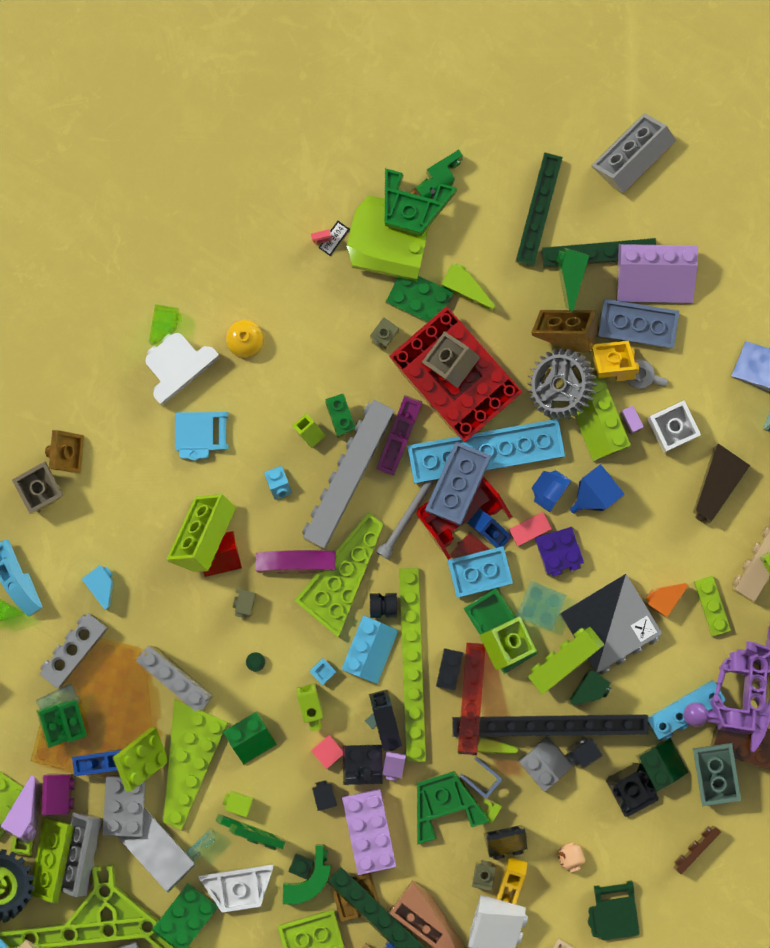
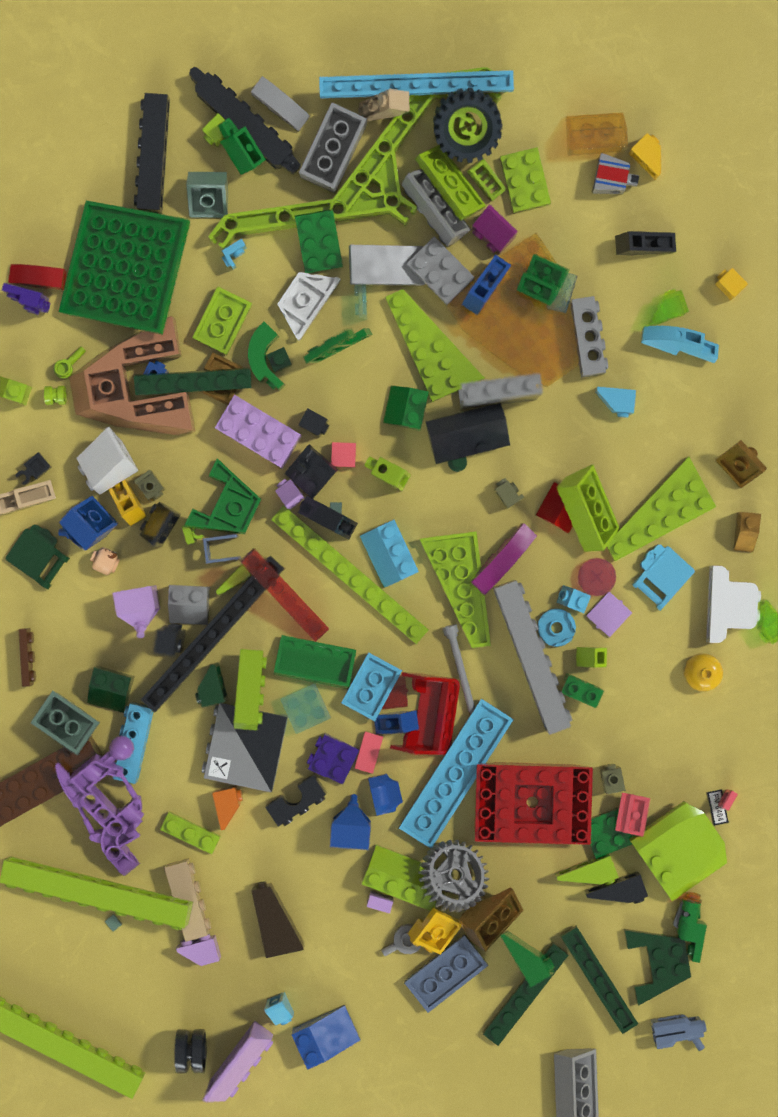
camera: 135 degrees right, 5 degrees up
(24, 814) = (502, 193): lavender slope -> none
(38, 488) = (733, 418): dark tan slope -> none
(111, 402) = (746, 531): none -> pearl gold slope
(140, 759) = (463, 313): lime plate -> none
(145, 474) = (669, 507): none -> lime wing
(227, 673) = (468, 433): none -> black brick
(238, 803) = (366, 355): lime brick -> none
(246, 480) = (597, 576): none -> clear pink tile
(265, 446) = (609, 614): none -> lavender piece
(310, 464) = (568, 627): none -> medium azure tile
(322, 671) = (405, 504): medium azure plate -> none
(383, 605) = (412, 593): black wheel -> none
(396, 295) = (632, 814): none -> coral plate
(399, 435) = (526, 720): magenta slope -> none
(411, 211) = (687, 883): green wing -> none
(449, 669) = (321, 598): black brick -> none
(451, 359) = (547, 811): dark tan slope -> none
(456, 251) = (624, 889): none -> black slope
(458, 483) = (450, 731): sand blue plate -> none
(480, 172) = (666, 959): none -> dark green wing
(508, 643) = (300, 658): lime slope -> none
(522, 122) = (678, 1028): none -> sand blue piece
(556, 896) = (87, 523): none -> blue piece
(582, 800) = (137, 607): none -> lavender piece
(632, 552) = (283, 811): none -> black arch
(632, 789) = (112, 650): black slope -> none
(656, 273) = (471, 1023): lavender slope -> none
(673, 426) = (346, 928): white brick -> none

